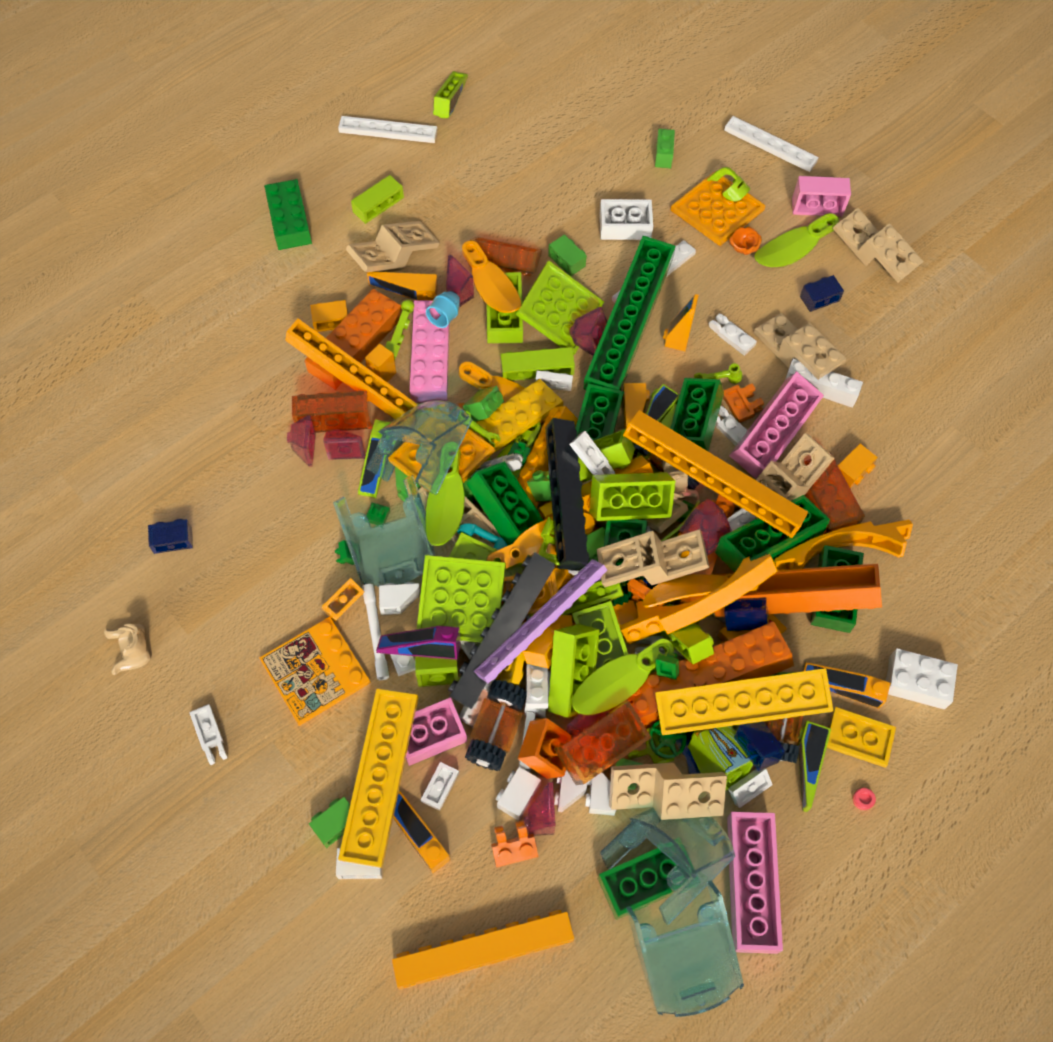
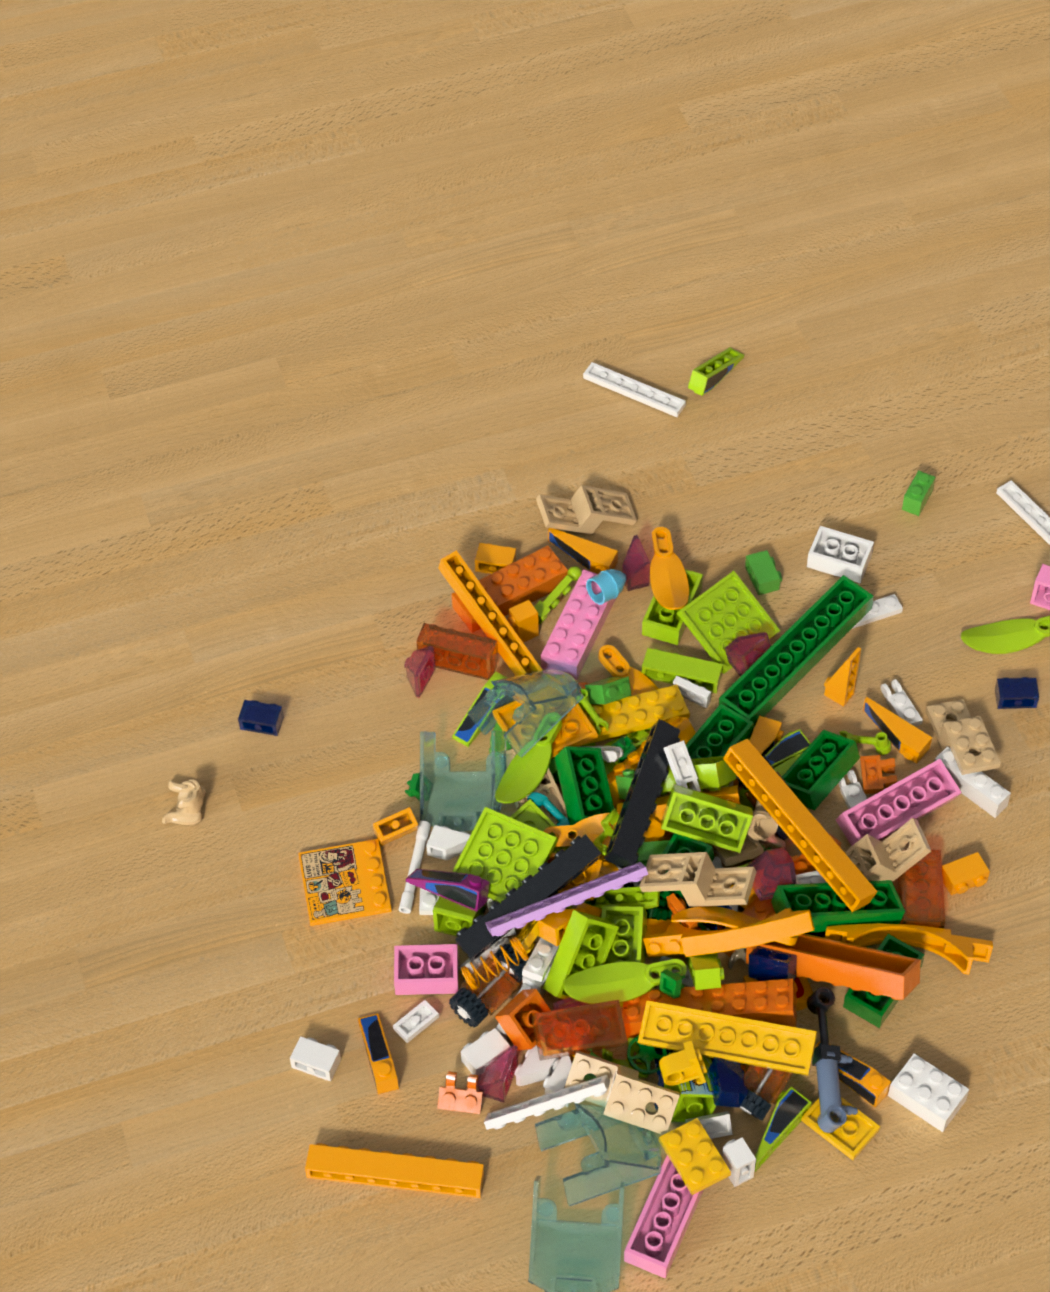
camera: 25 degrees right, 10 degrees down
(208, 732) = (227, 901): white hinge -> none
(287, 214) = (495, 447): green brick -> none
(331, 823) = (308, 1016): bright green brick -> none
(343, 445) = (455, 686): clear pink slope -> none
(377, 199) = (592, 458): lime brick -> none
(377, 514) = (462, 761): green tile -> none
(378, 778) = (361, 987): yellow plate -> none
(510, 256) = (701, 554): clear orange slope -> none
(511, 682) = (517, 946): none -> light orange piece
(602, 826) = (539, 1105): none -> white plate
(637, 882) = (554, 1162): green brick -> none
(714, 214) = (948, 572): light orange plate -> none
(718, 746) = (683, 1066): none -> yellow pin
(732, 193) = (968, 560): lime helmet -> none
(745, 240) = (959, 614): orange hair -> none
(751, 361) = (904, 736): none -> light orange slope
(759, 827) = (694, 1156): none -> yellow plate
(794, 812) = (739, 1161): none -> white brick
(855, 731) = (826, 1061): none -> sand blue piece
(864, 799) = (817, 1180): coral tile -> none

